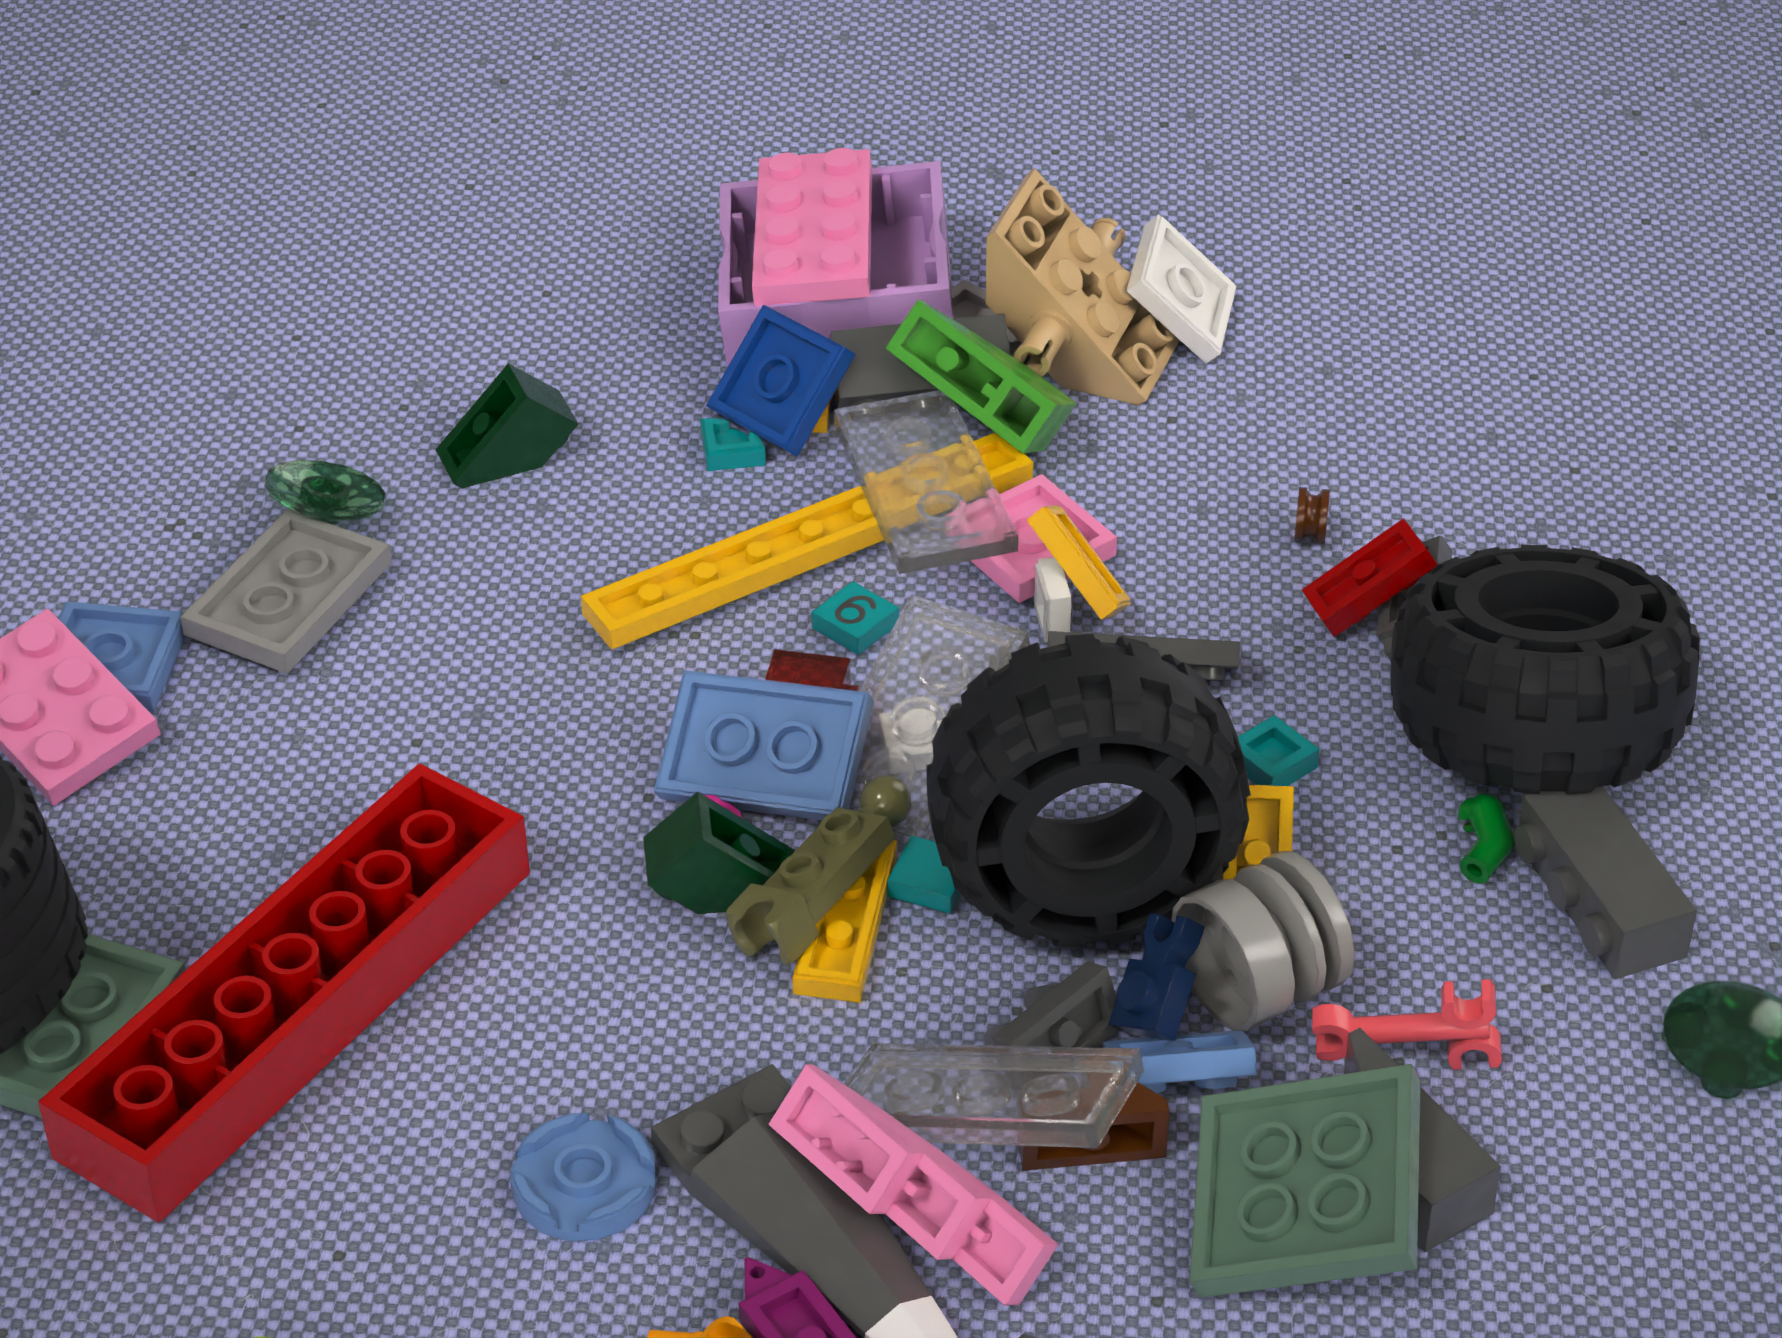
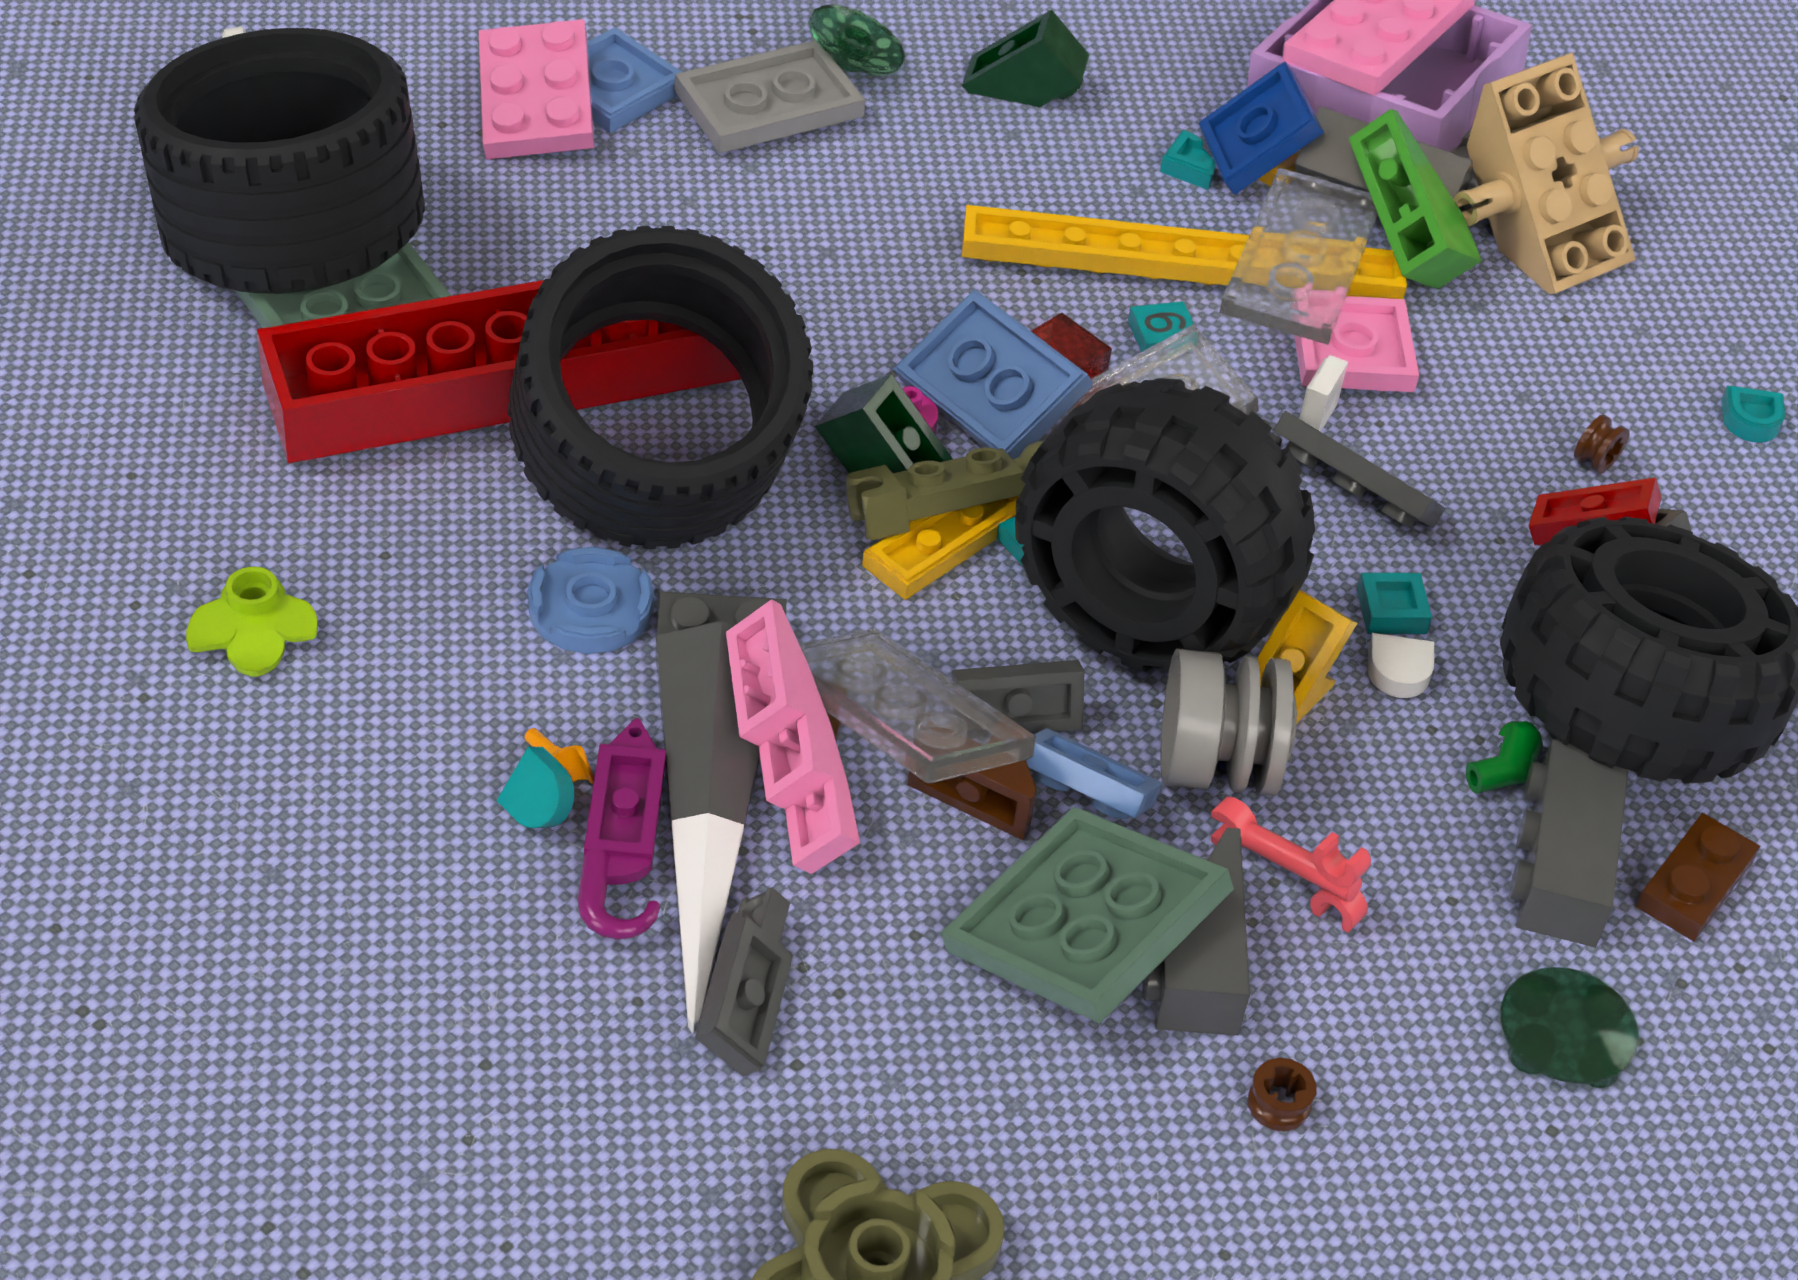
camera: 30 degrees right, 5 degrees up
(560, 817) = (676, 281): none -> black tyre
(1079, 561) = (1362, 374): yellow tile -> none
(1159, 985) = (1114, 707): dark blue plate -> none
(1181, 288) = (1654, 219): white tile -> none
(1329, 807) = (1400, 664): none -> white tile
(1395, 421) = (1753, 413): none -> teal tile
(1581, 1259) = (1297, 1081): none -> reddish brown bush
(1712, 847) = (1697, 876): none -> reddish brown plate

